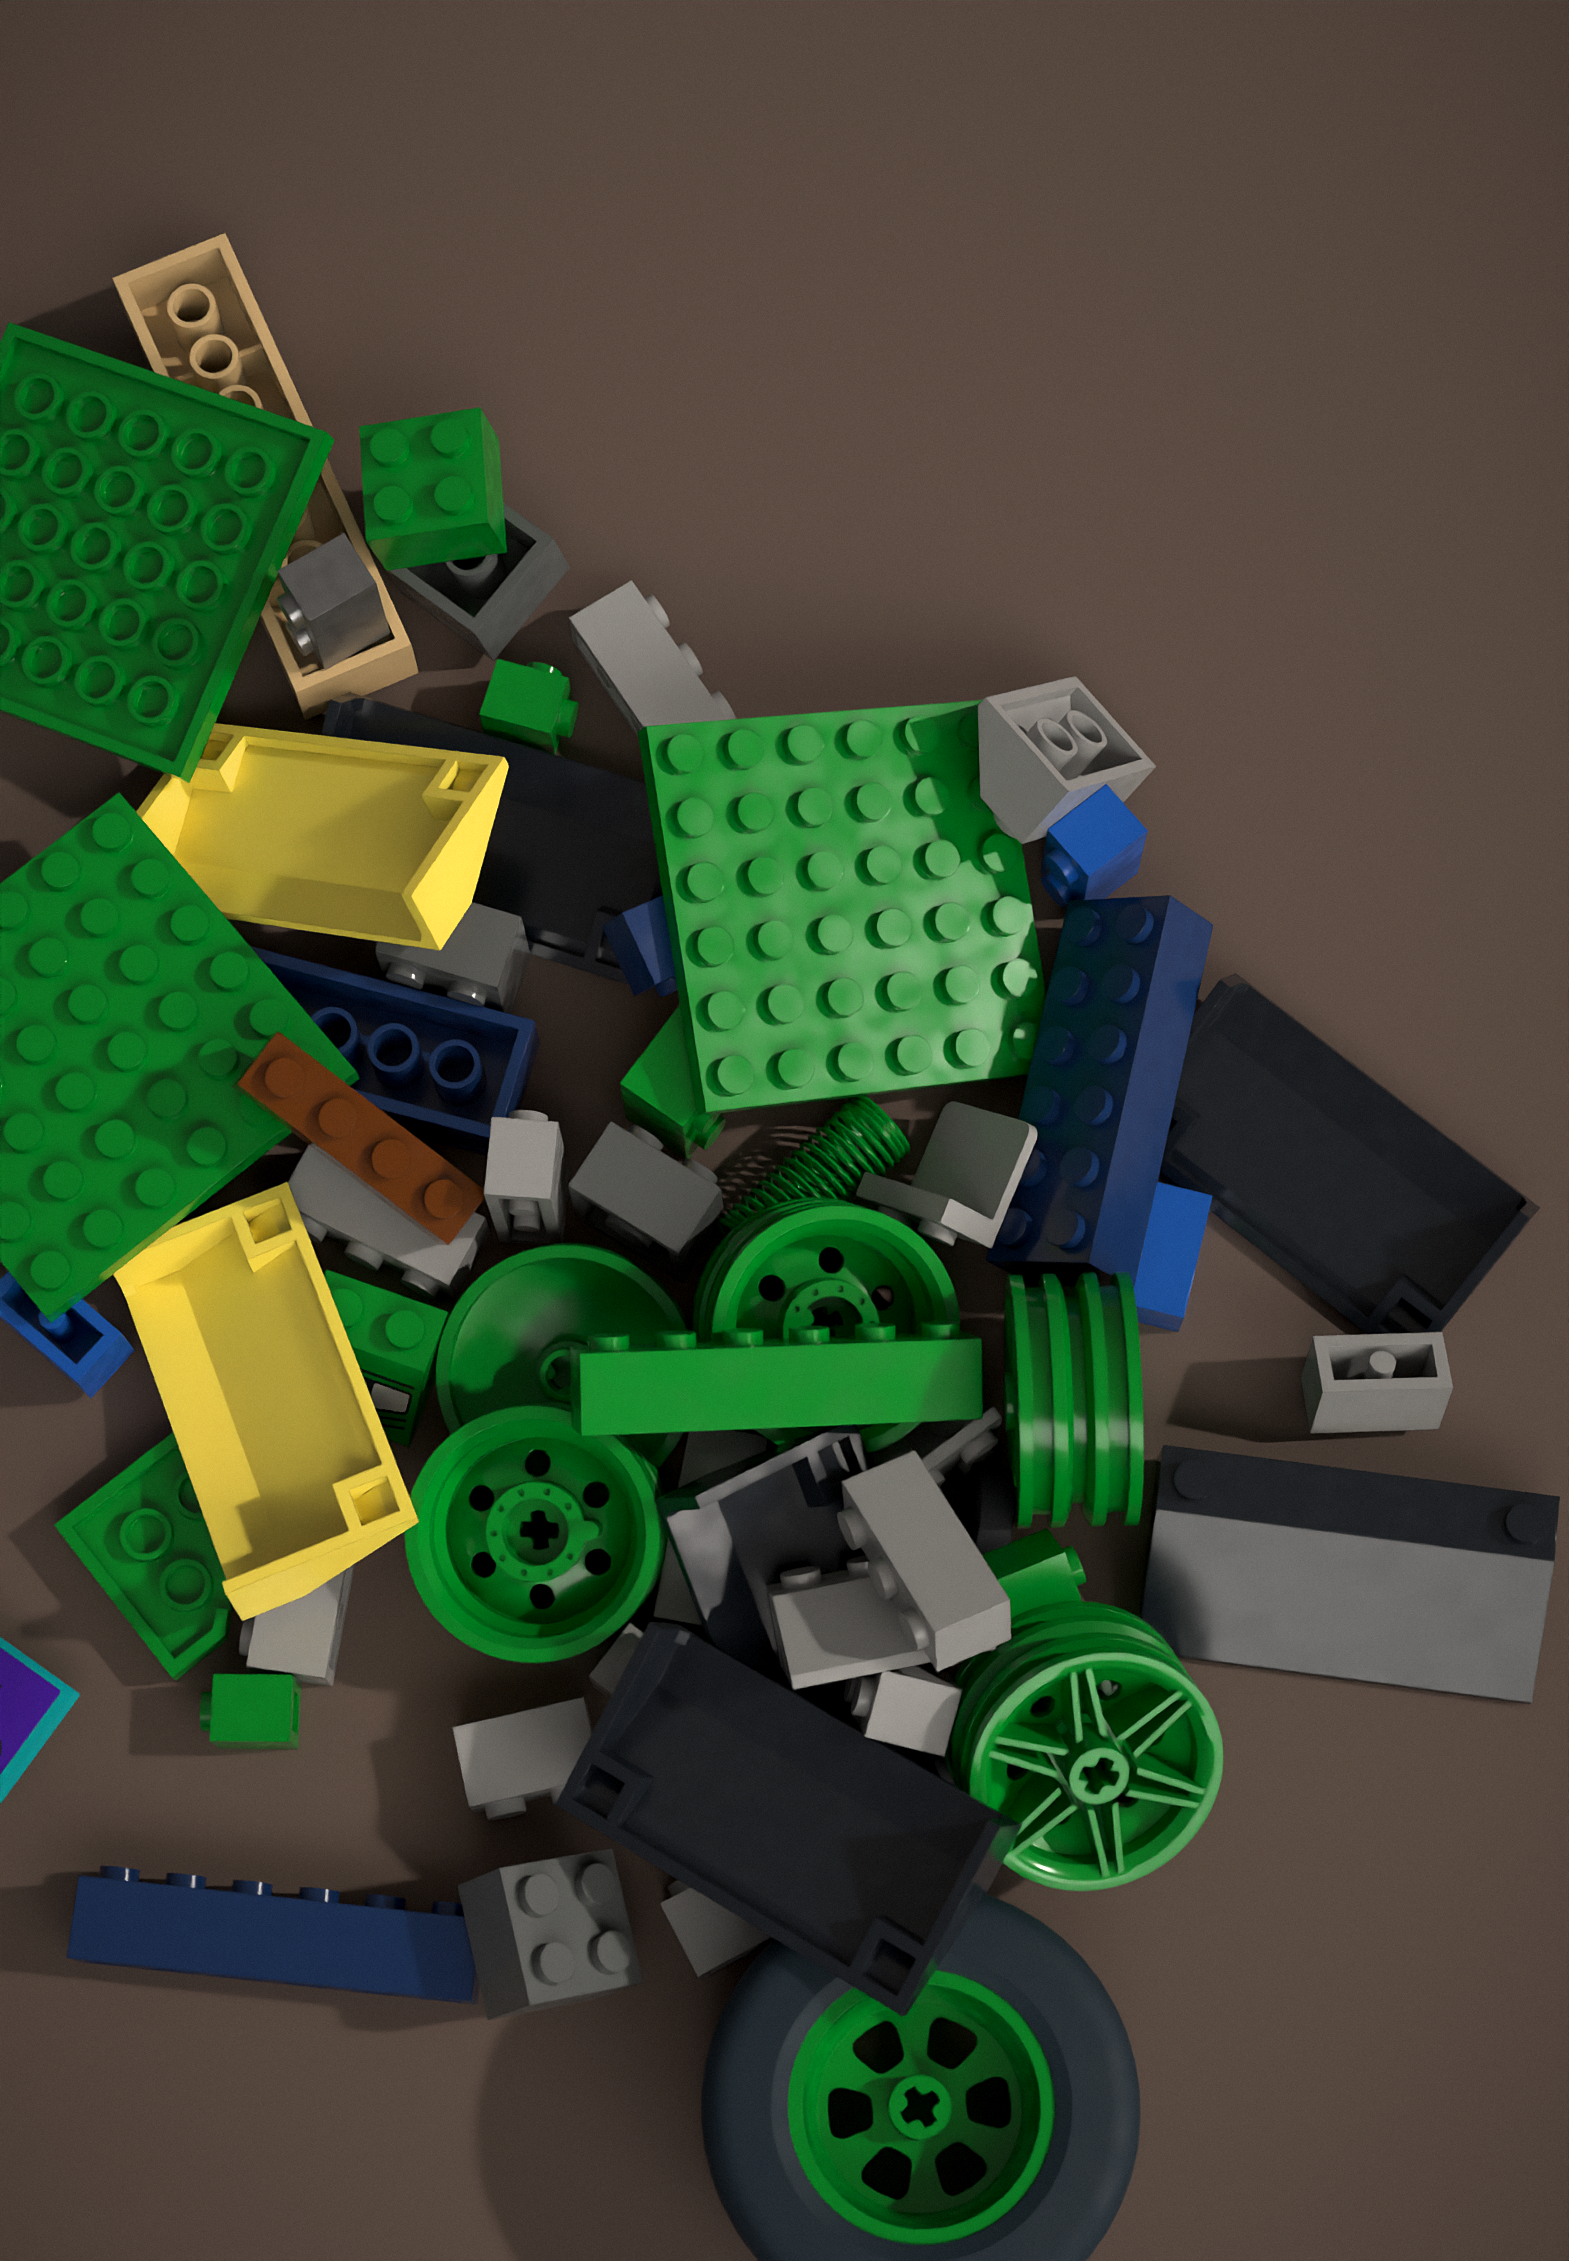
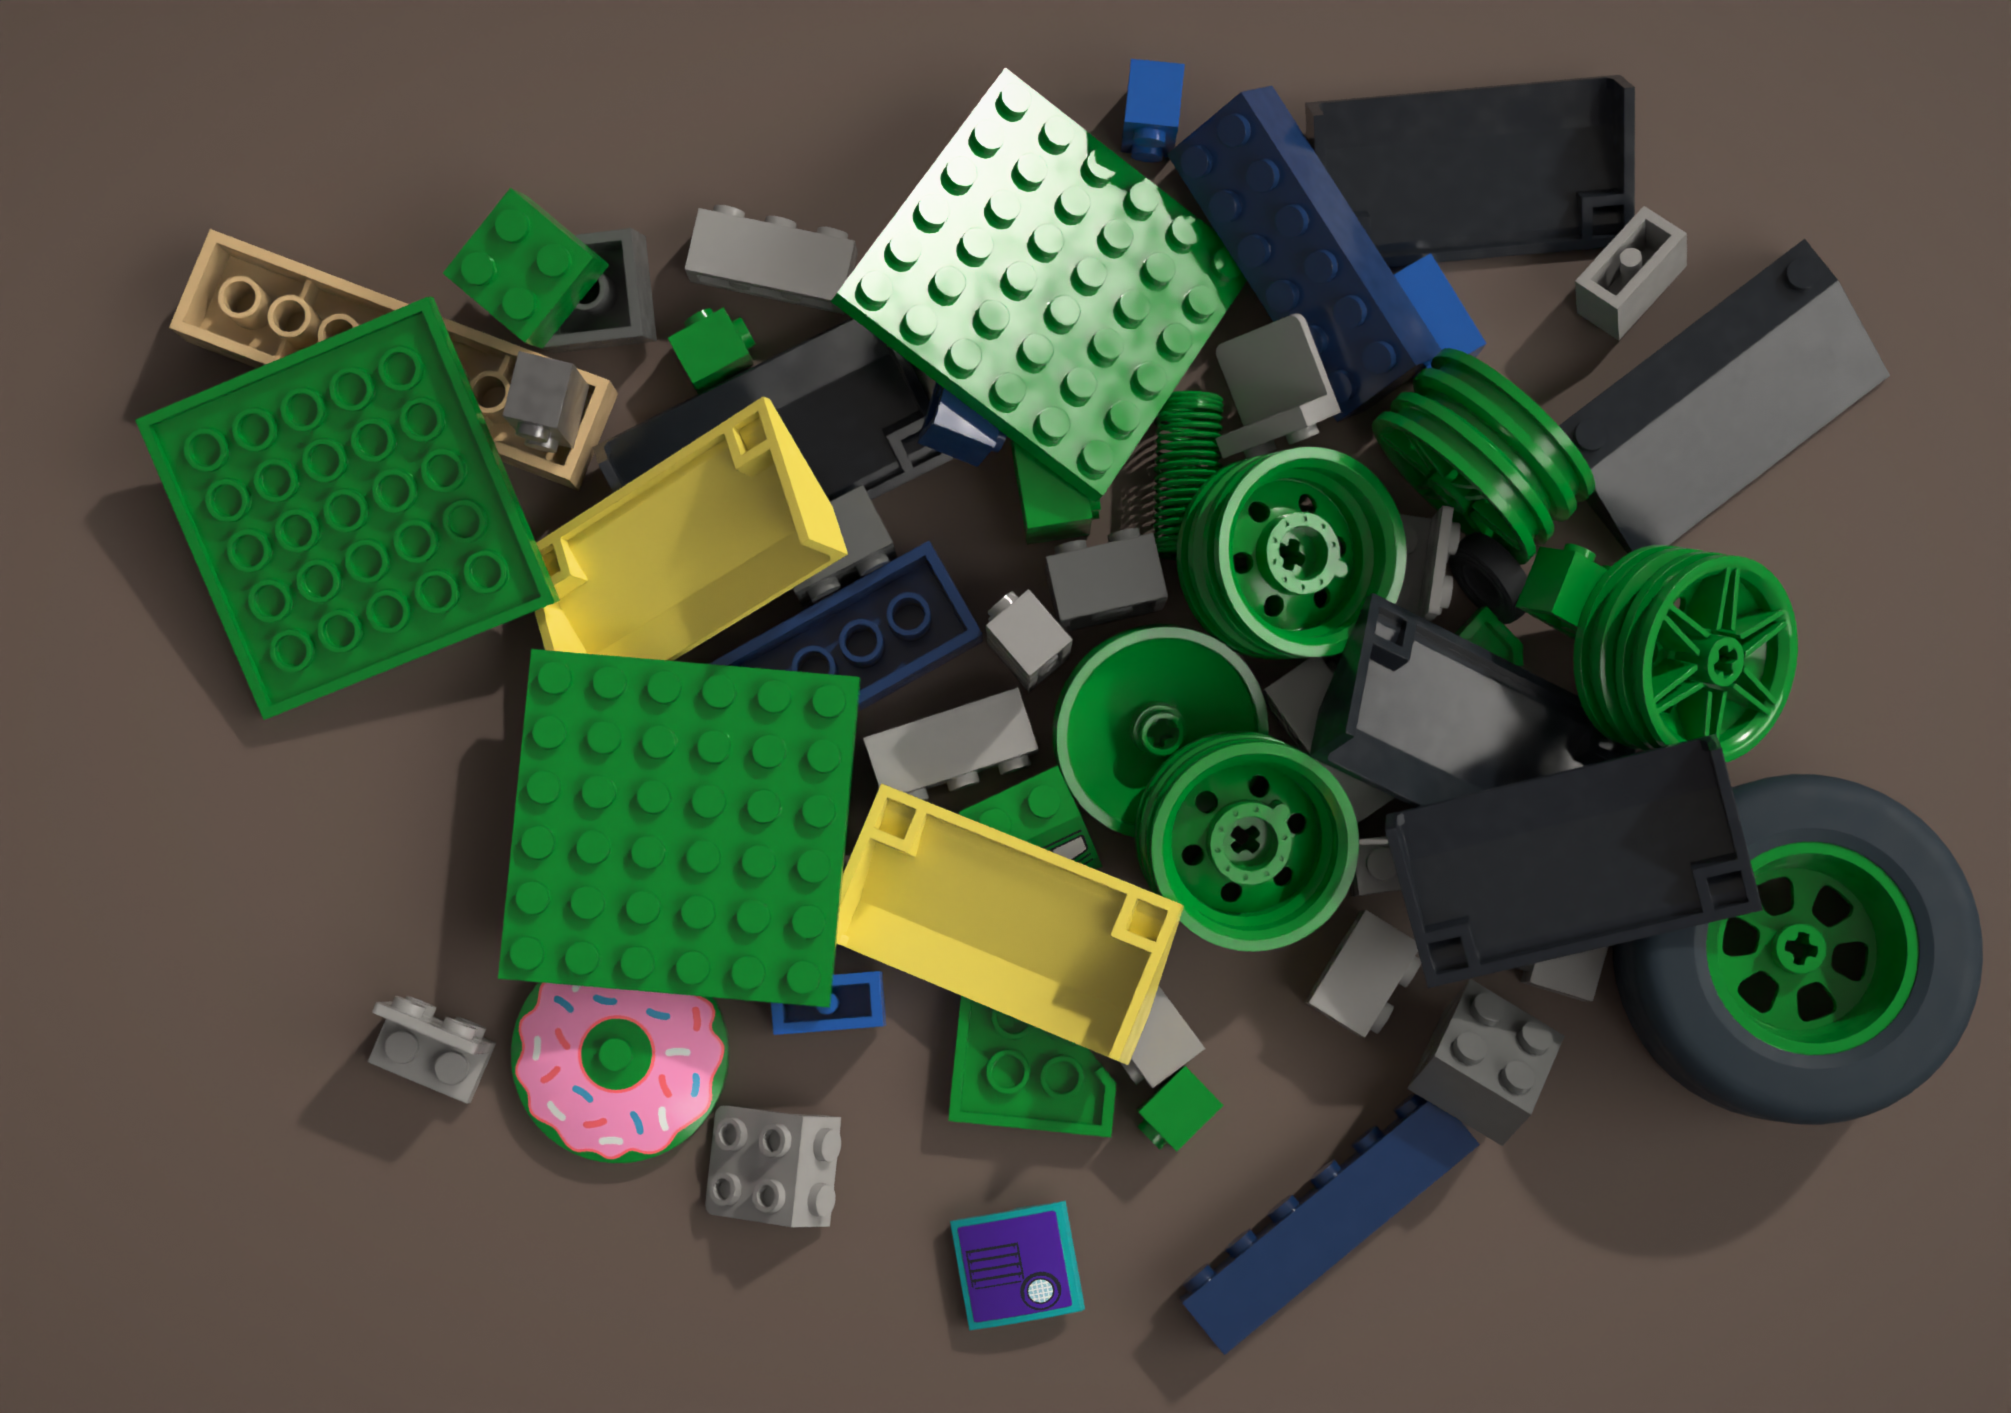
camera: 45 degrees left, 10 degrees up
(360, 1139) = (909, 715): reddish brown brick -> none
(775, 1381) = (1313, 617): green brick -> none
(836, 1626) = (1505, 695): light grey slope -> none
(906, 1706) = (1562, 728): light grey brick -> none
(924, 1561) = (1509, 637): light grey brick -> none
(1049, 753) = (1078, 73): light grey slope -> none

